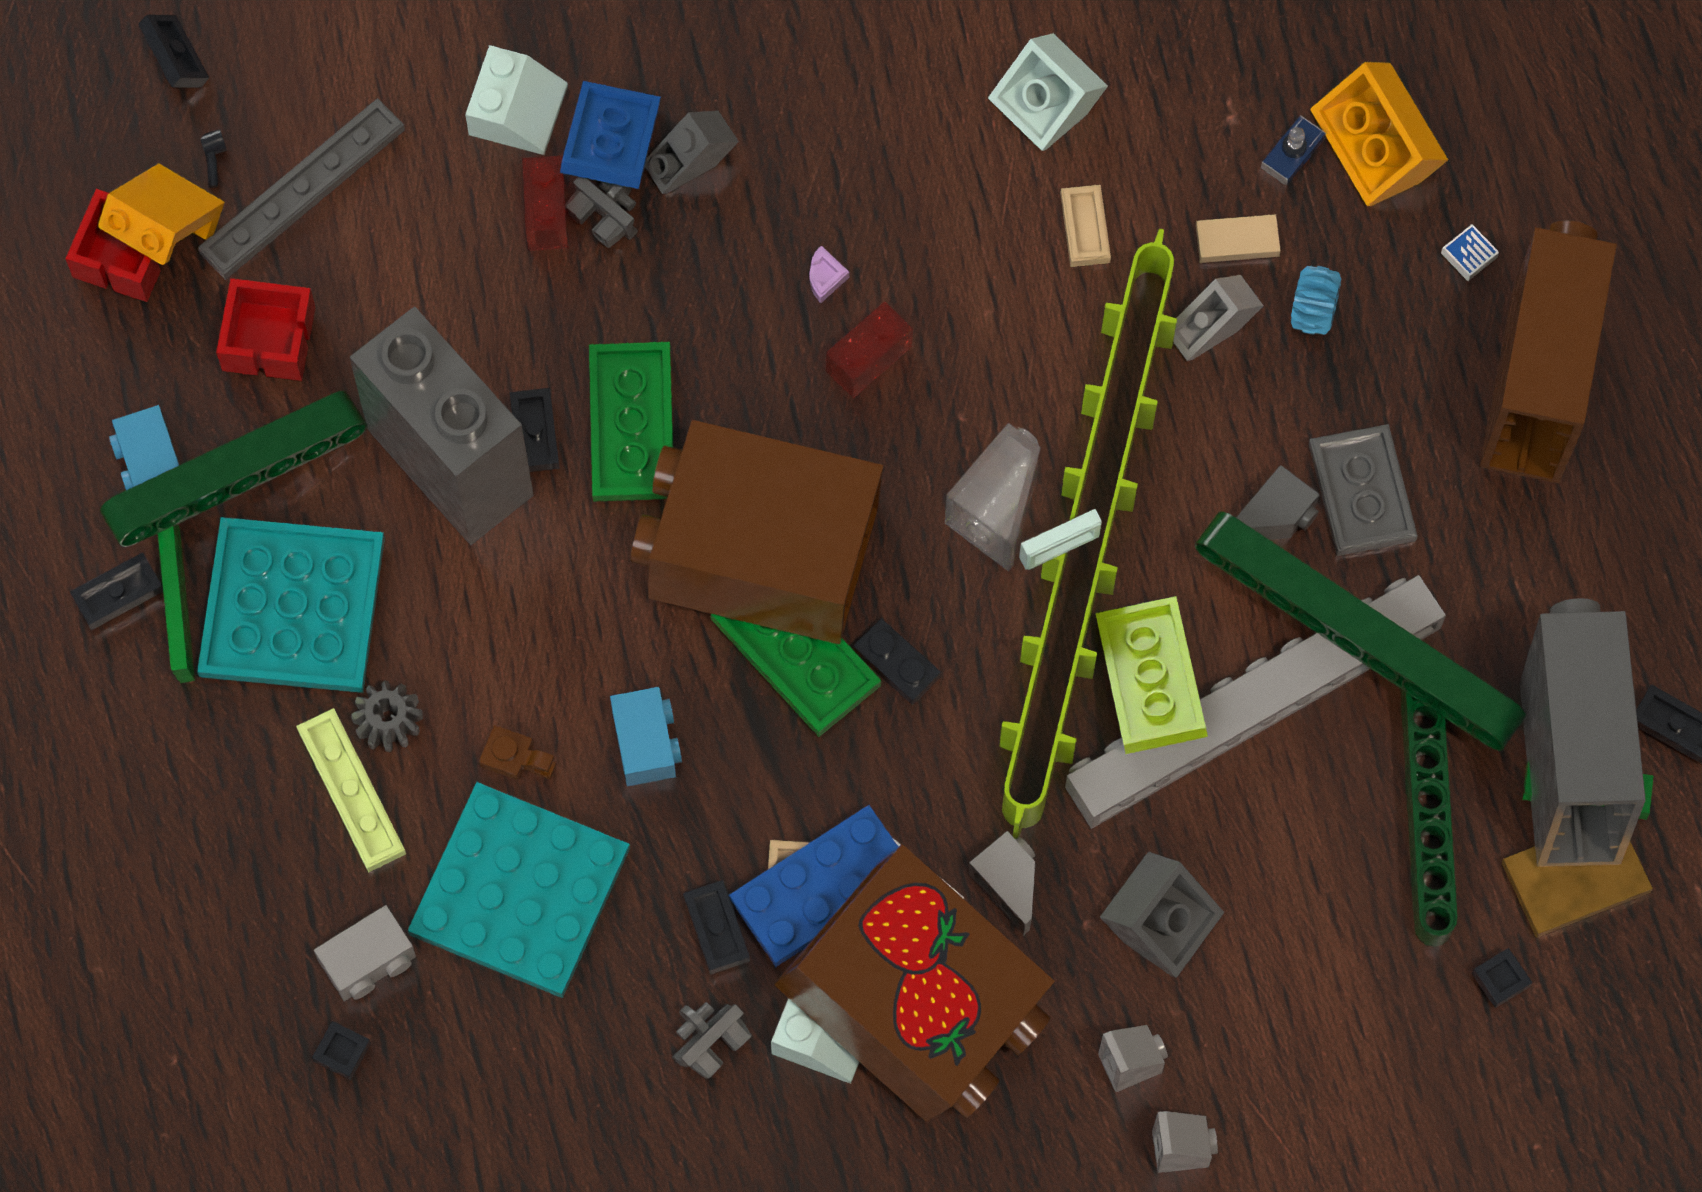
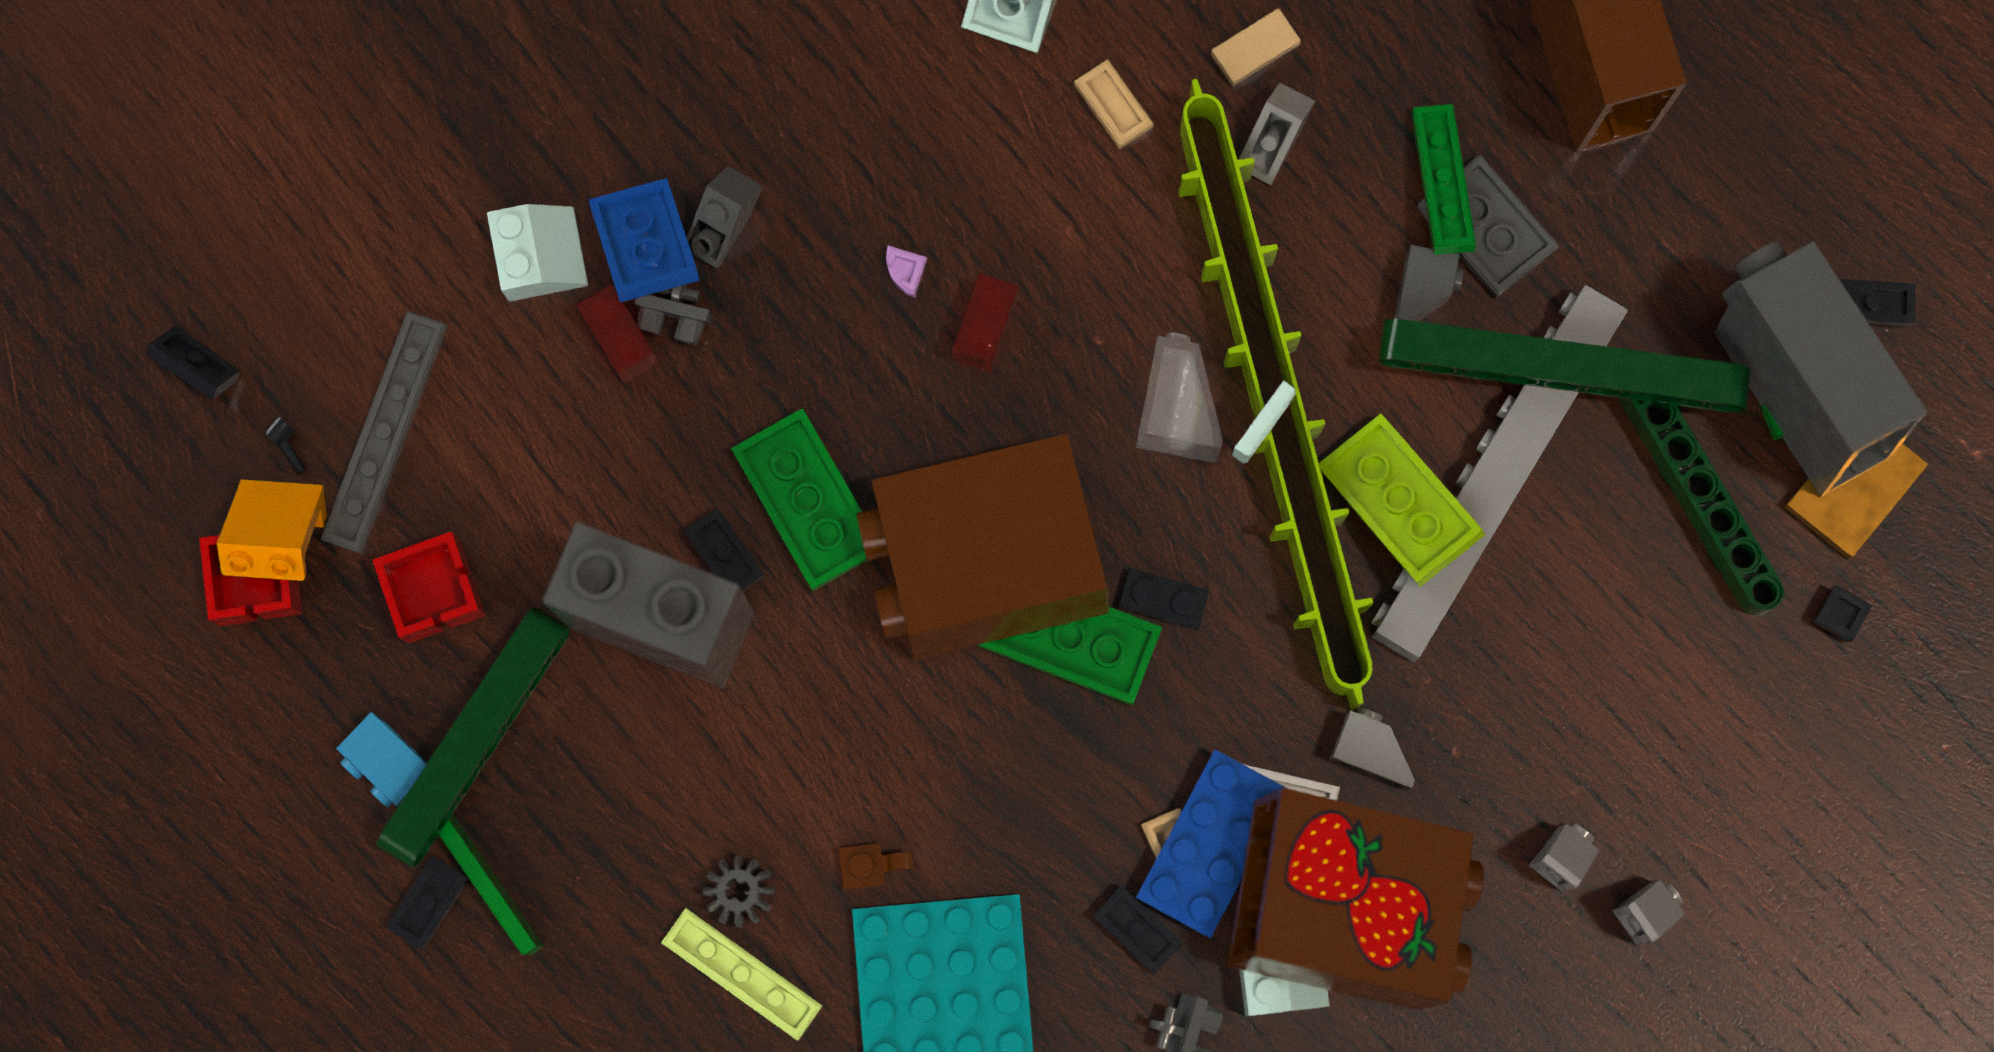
camera: 25 degrees left, 10 degrees up
(291, 605) = (594, 832): teal plate -> none
(644, 737) = (979, 788): dark azure brick -> none
(1162, 913) = (1520, 710): dark grey slope -> none
(1315, 300) = (1359, 72): dark azure gear -> none
(1341, 426) = (1443, 179): none -> green tile

